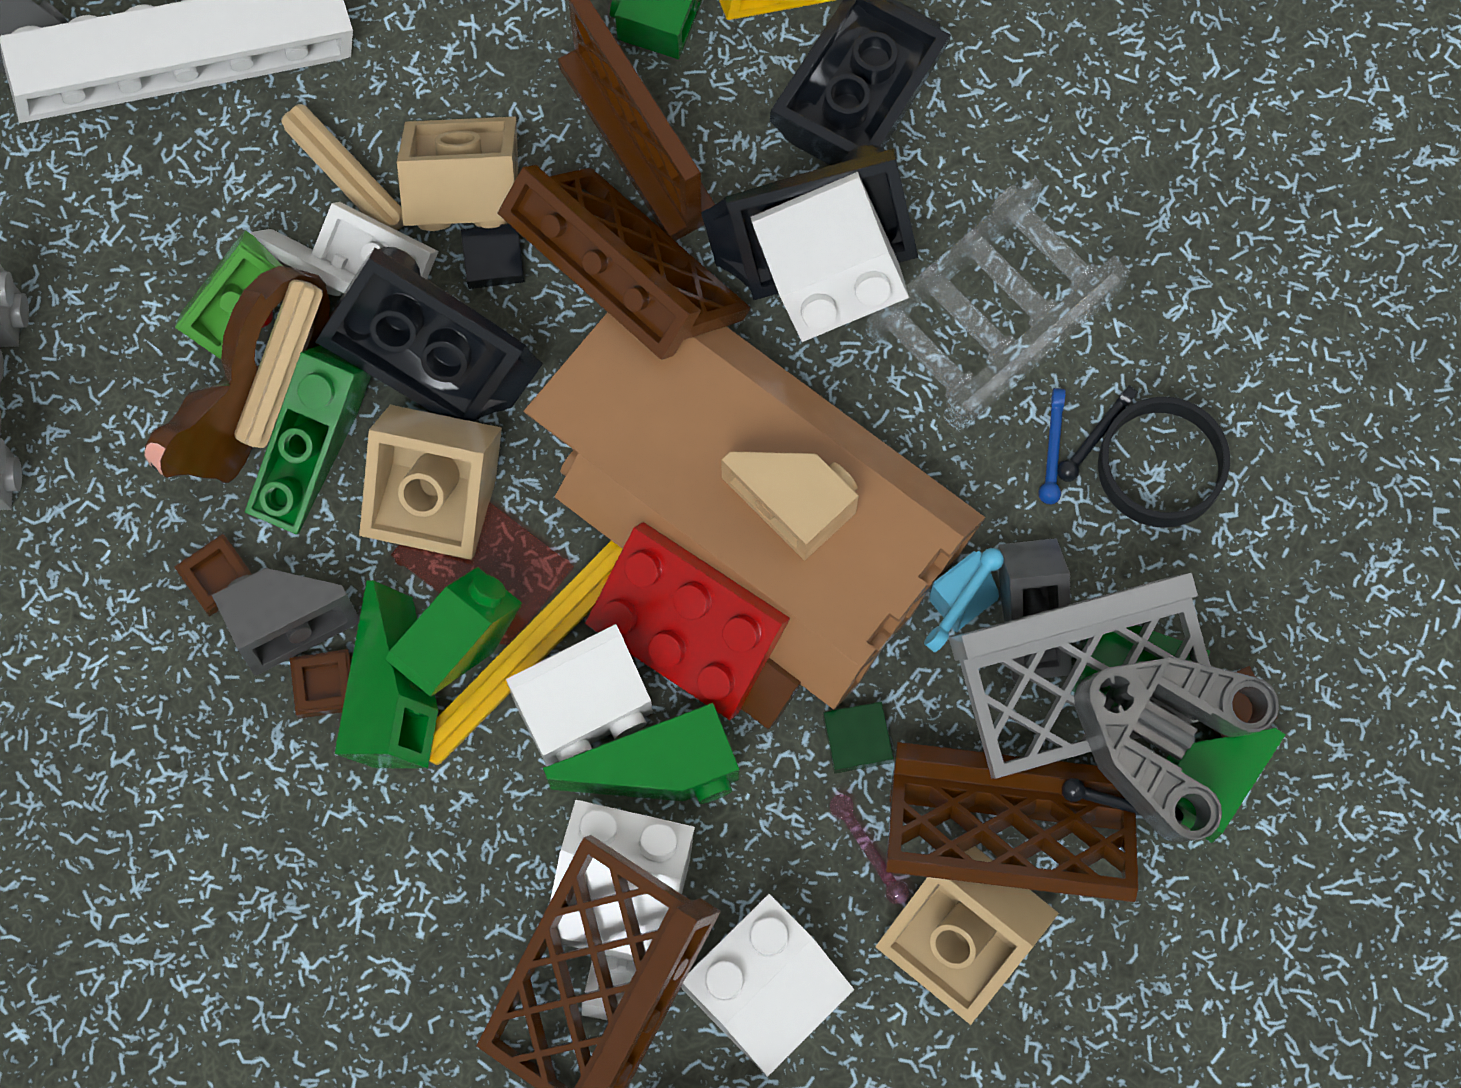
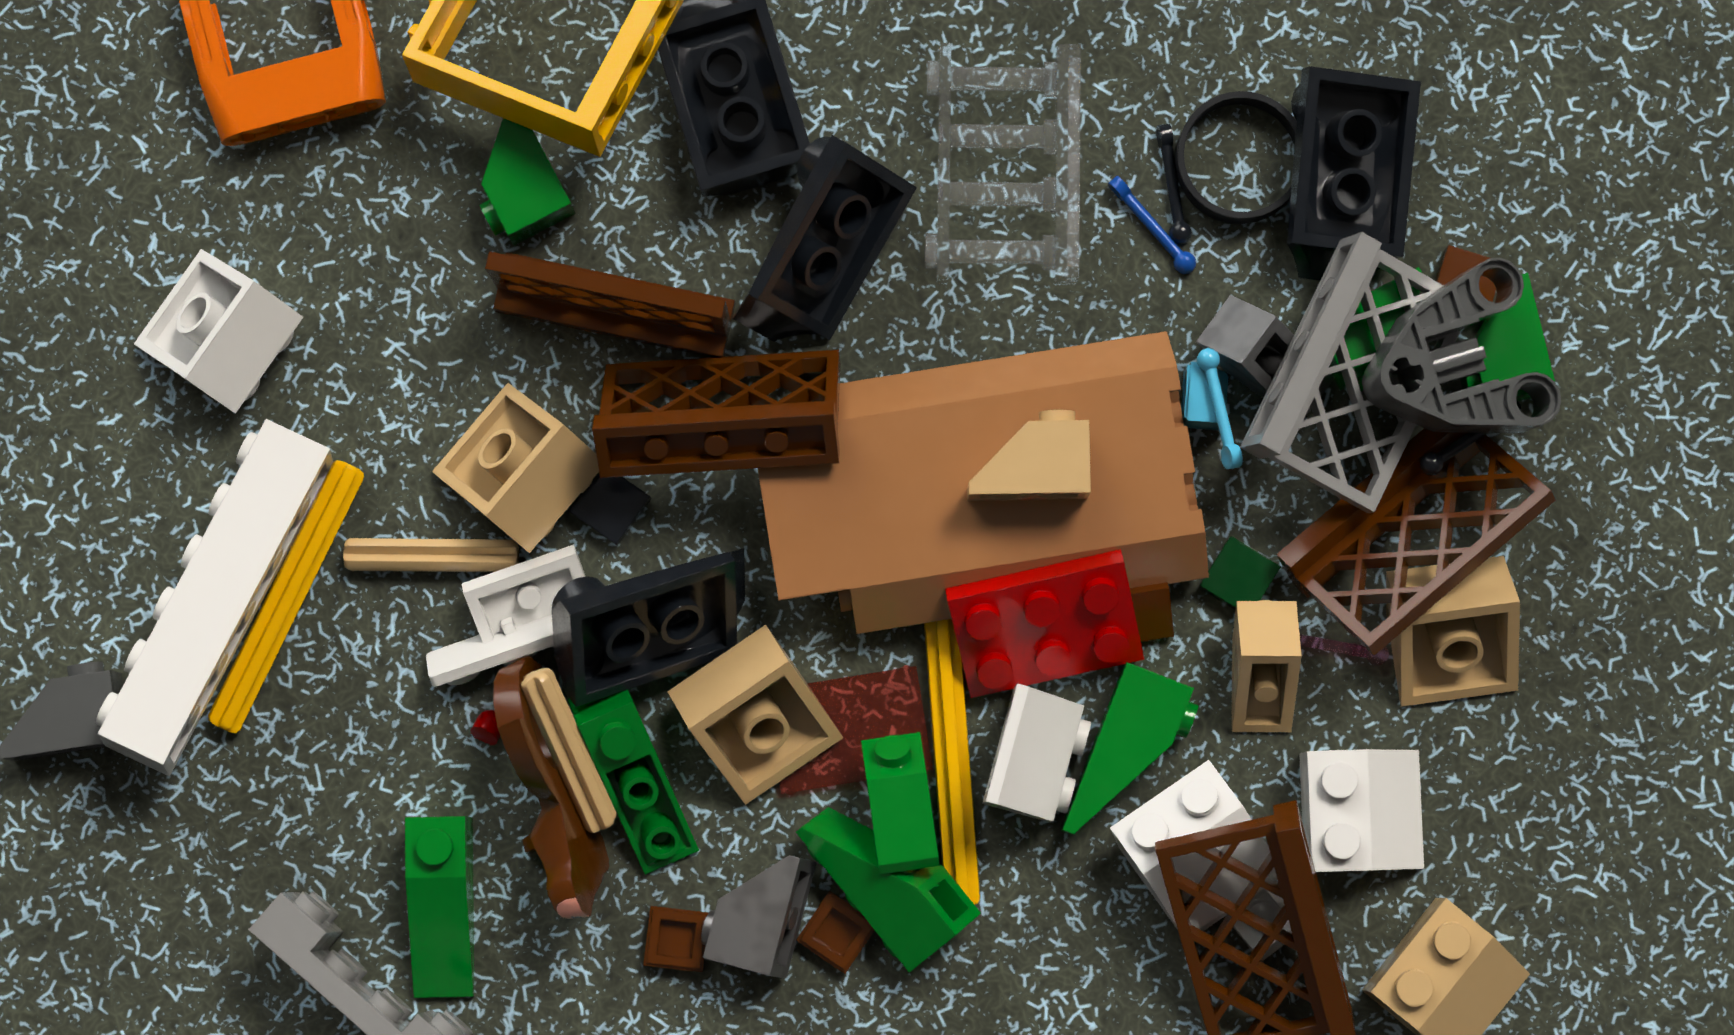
camera: 45 degrees left, 10 degrees up
(95, 386) = (440, 905): none -> green slope
(211, 306) = (462, 735): bright green slope -> none
(225, 101) = (286, 596): none -> yellow axle
(806, 810) = (1265, 665): none -> tan slope
(830, 257) = (867, 259): white slope -> none
(1236, 536) = (1350, 163): none -> black slope

